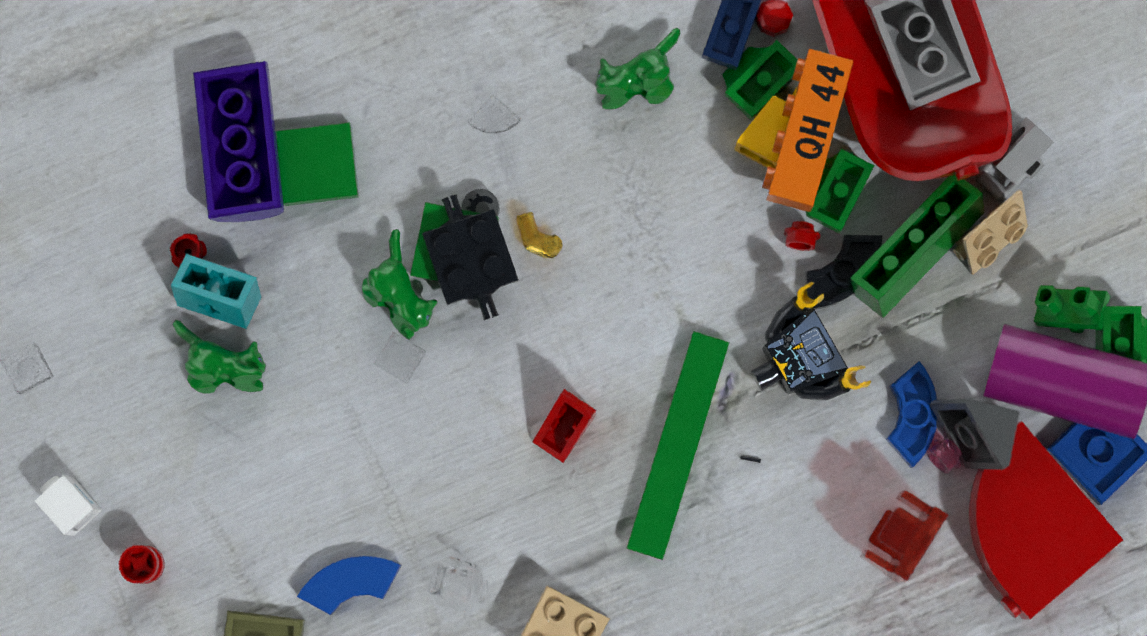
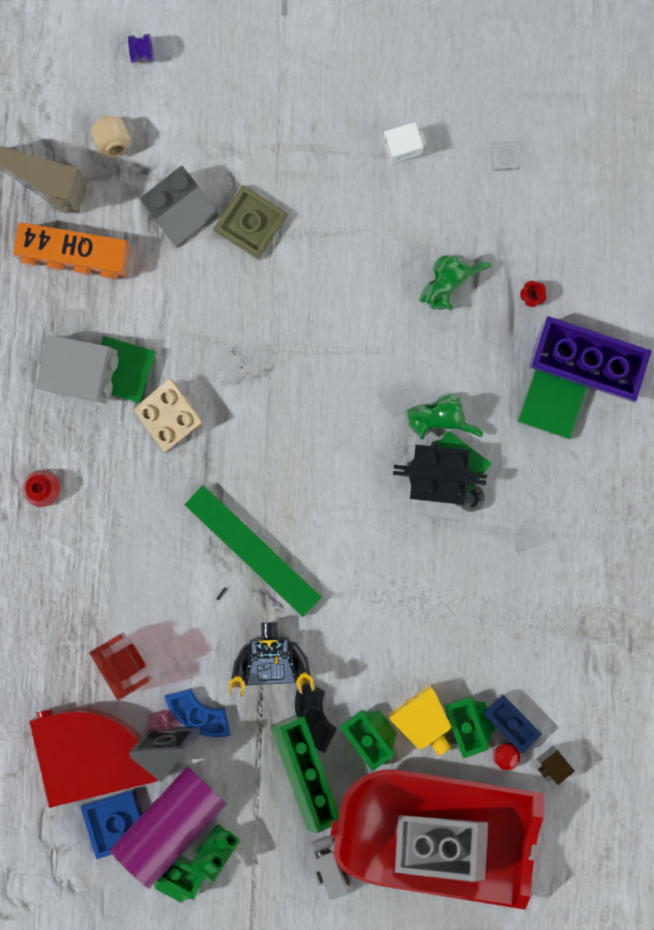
camera: 110 degrees right, 5 degrees up
(135, 561) = (341, 167): red wheel -> none
(216, 291) = (497, 299): teal brick -> none
(348, 579) = (269, 300): blue tile -> none
(536, 241) = (431, 523): clear yellow arm -> none
(564, 425) = (300, 482): red slope -> none
(644, 75) = (507, 649): green animal -> none
(801, 236) = (349, 699): red plate -> none
(808, 131) = (415, 739): orange brick -> none
(985, 241) = (290, 839): tan hinge -> none

